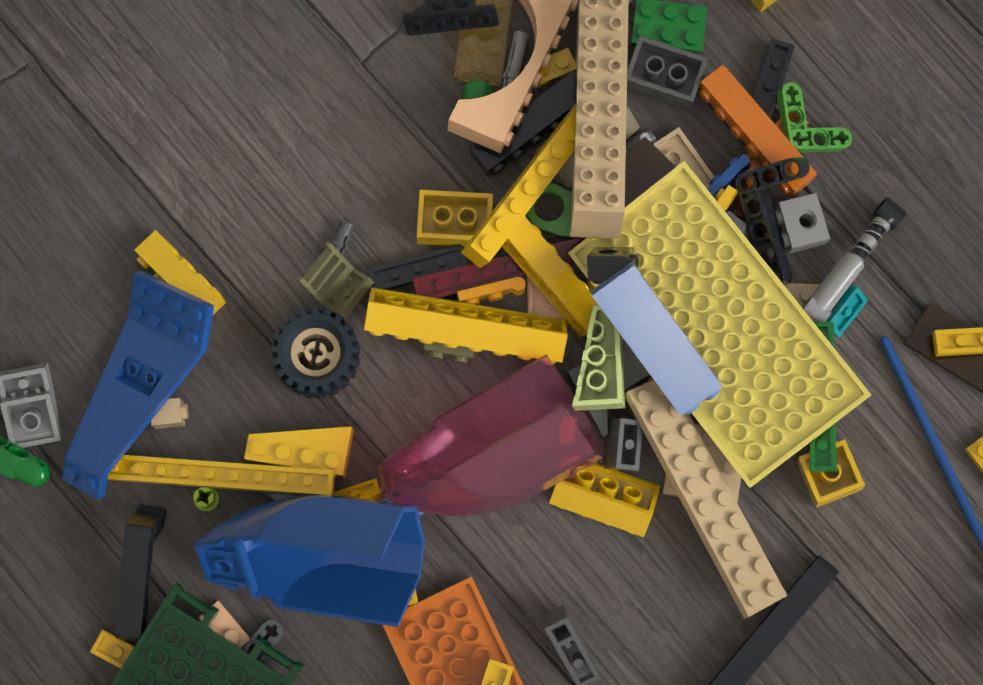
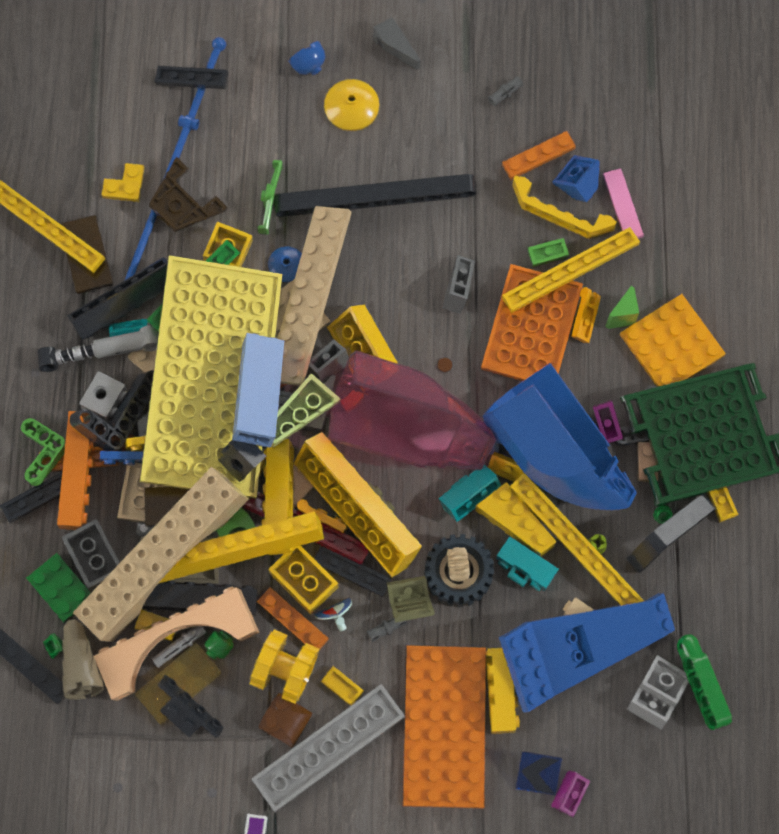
camera: 140 degrees left, 5 degrees down
(40, 243) = (570, 793): none -> magenta slope
(82, 233) = (538, 773): none -> clear blue piece
(163, 584) = (662, 514): none -> green plate
(208, 205) = (444, 727): none -> orange plate
(246, 419) = (520, 558): none -> teal piece
(296, 95) = (328, 748): none -> light grey plate
(297, 631) = (608, 421): none -> magenta slope
(317, 348) = (458, 564): none -> tan gear
(333, 160) = (342, 686): none -> yellow tile
(358, 86) = (285, 720): none -> reddish brown slope
(371, 437) = (469, 492): none -> teal piece
(397, 120) = (276, 663): none -> yellow piece
(397, 214) = (336, 612): none -> shield
(432, 178) = (292, 619): none -> orange plate
(511, 551) = (444, 364): none -> reddish brown piece
(774, 509) = (276, 264): none -> blue dish
(845, 567) = (268, 196): none -> bright green plate
(881, 327) = (120, 300): none -> black brick
(923, 472) = (177, 206): none -> dark brown wing

